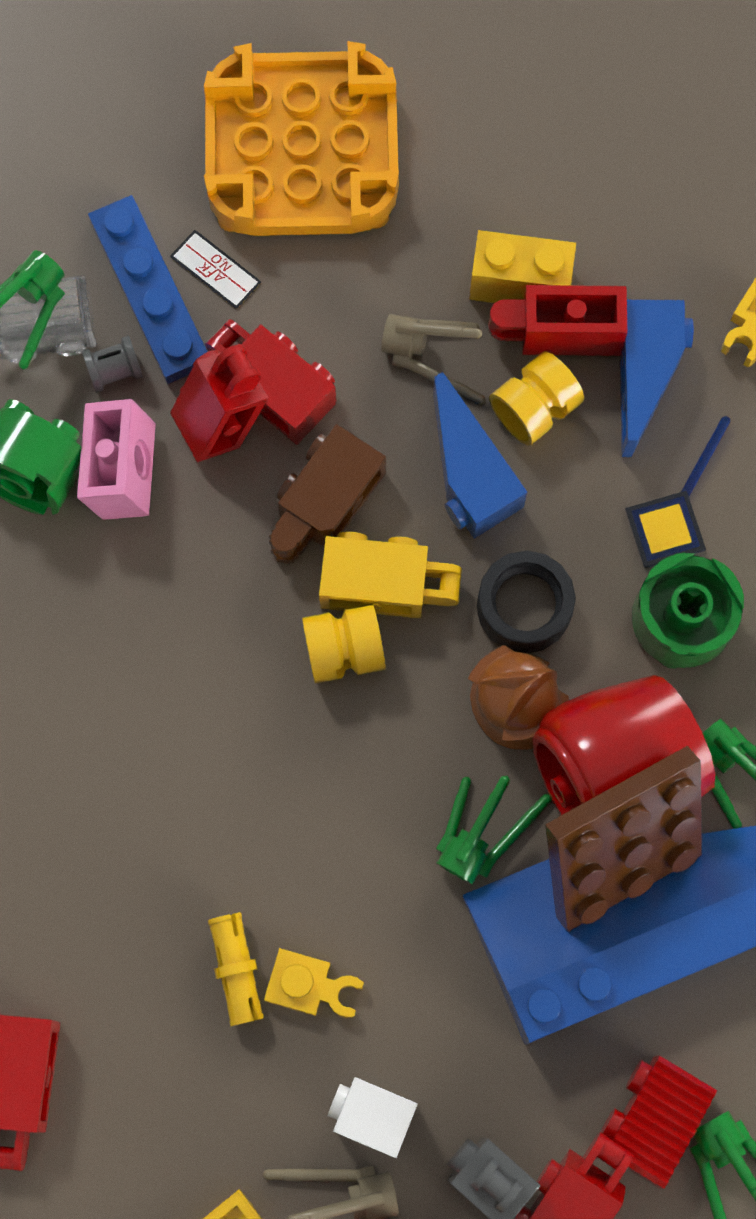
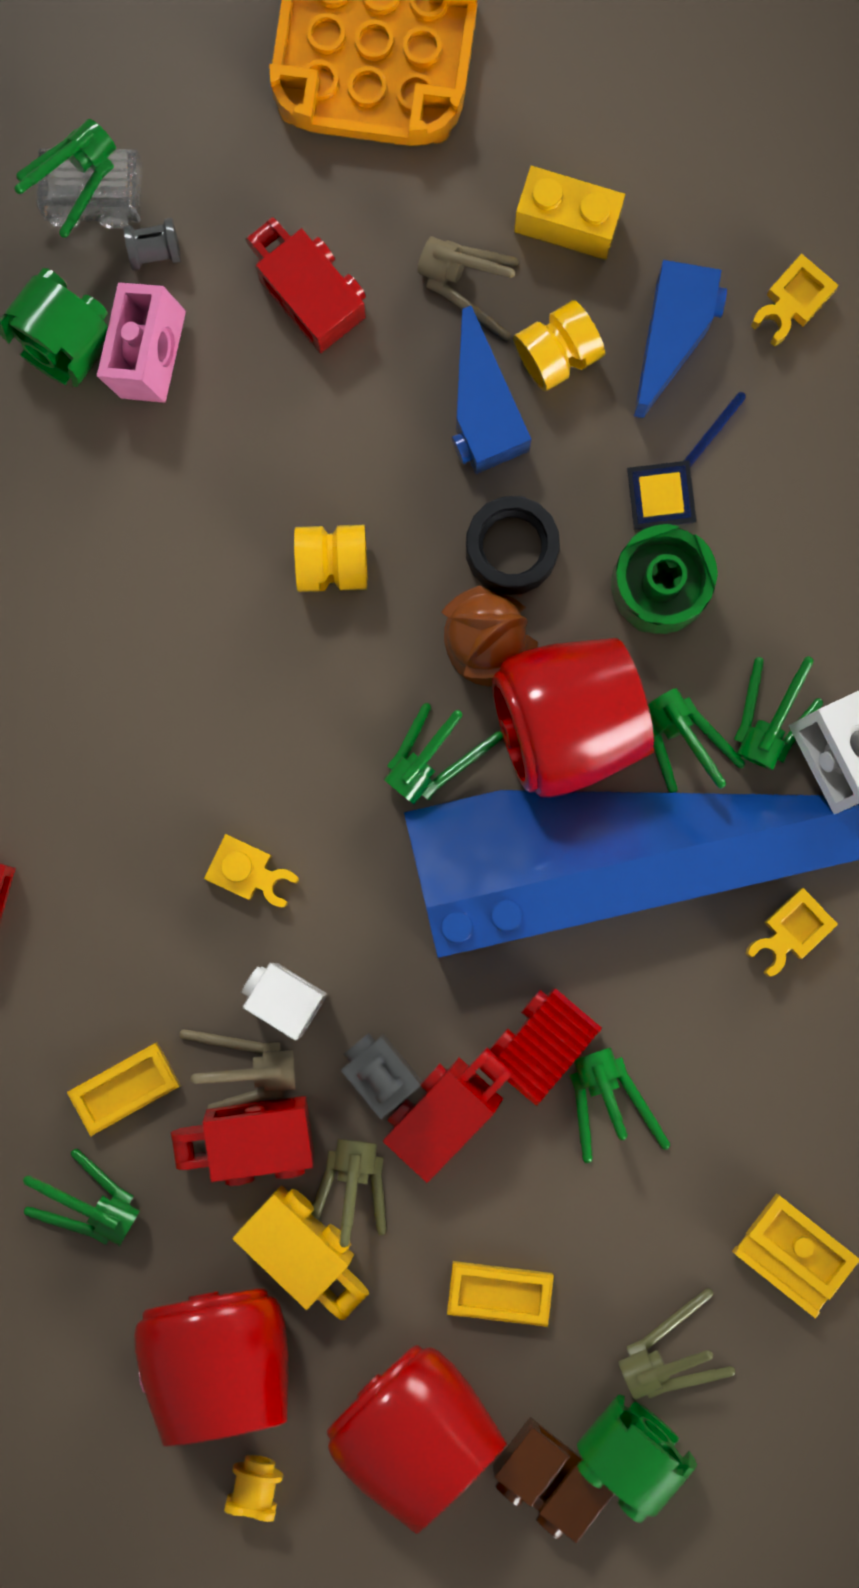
camera: 10 degrees right, 10 degrees up
(148, 287) = (200, 171): blue plate -> none
(215, 269) = (269, 160): white sticker -> none
(219, 402) = (247, 302): red brick -> none
(235, 969) = (182, 846): yellow pin -> none
(325, 493) = (338, 407): reddish brown hinge -> none
(384, 575) = (380, 498): yellow brick -> none
(564, 320) = (599, 270): red brick -> none
(626, 839) = (558, 788): reddish brown plate -> none

